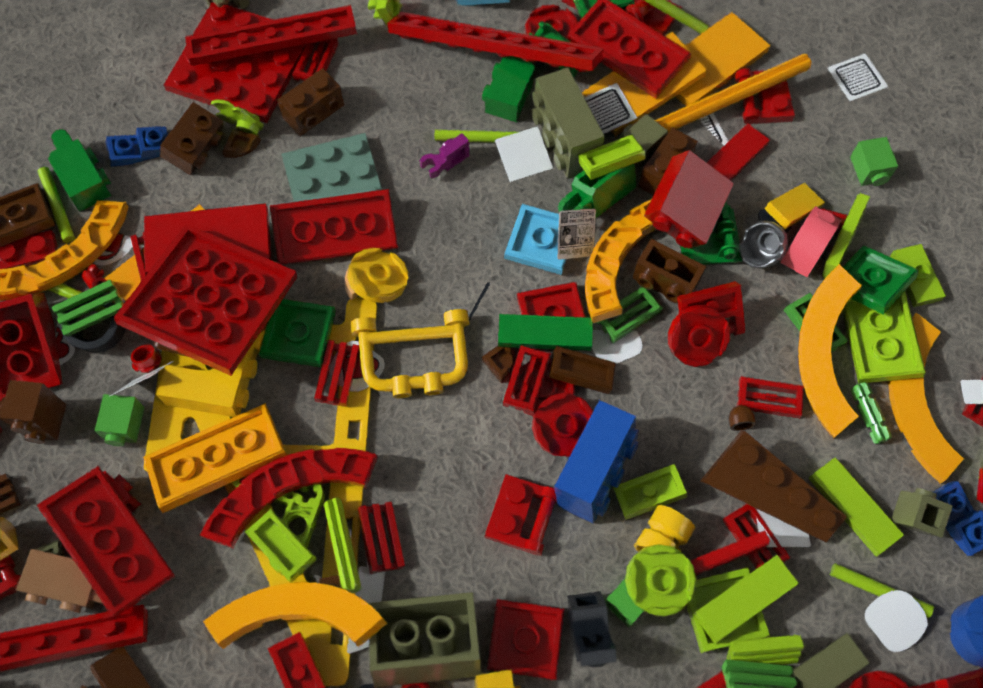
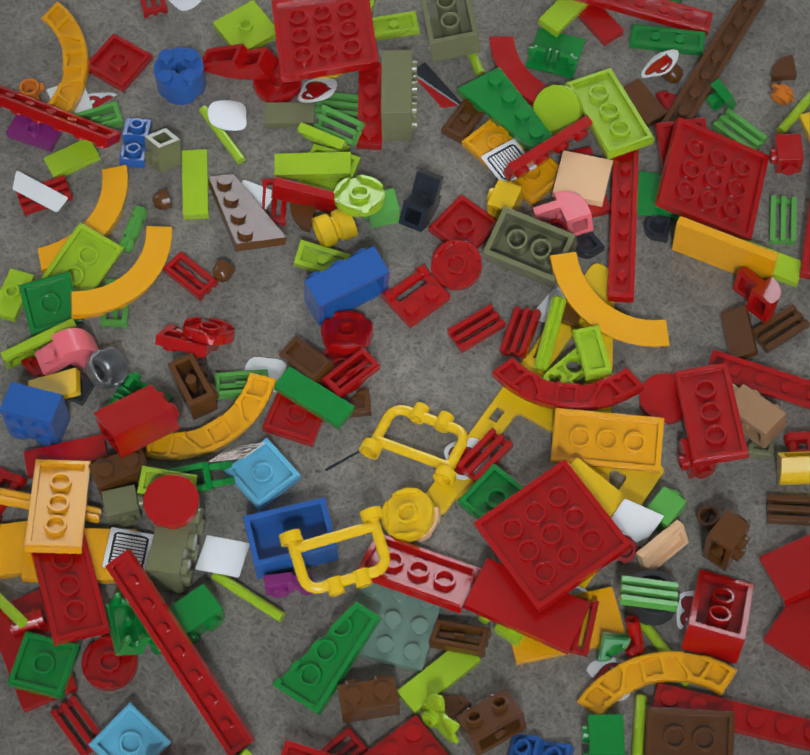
camera: 145 degrees left, 5 degrees down
(62, 437) = (703, 517): none -> reddish brown hinge
(104, 379) = (662, 547): none -> light nougat tile
(117, 260) = (610, 645): none -> green tile
(183, 551) = (661, 398): none -> red tile
(263, 192) = (459, 642): none -> reddish brown tile
(264, 160) = (436, 678): none -> lime tile
(365, 112) = (326, 664): none -> green wing
(396, 159) = (335, 585): none -> yellow bar
(444, 491) = (488, 310): none -> red tile
(469, 187) = (266, 526): none -> blue piece
(501, 578) = (456, 265): none -> red tile
(589, 125) = (171, 501): none -> red tile
(693, 96) = (58, 506): none -> light orange tile
(711, 537) = (302, 215): none -> reddish brown tile
(786, 160) = (35, 414): none -> blue brick
(870, 463) = (162, 200): none -> reddish brown hinge

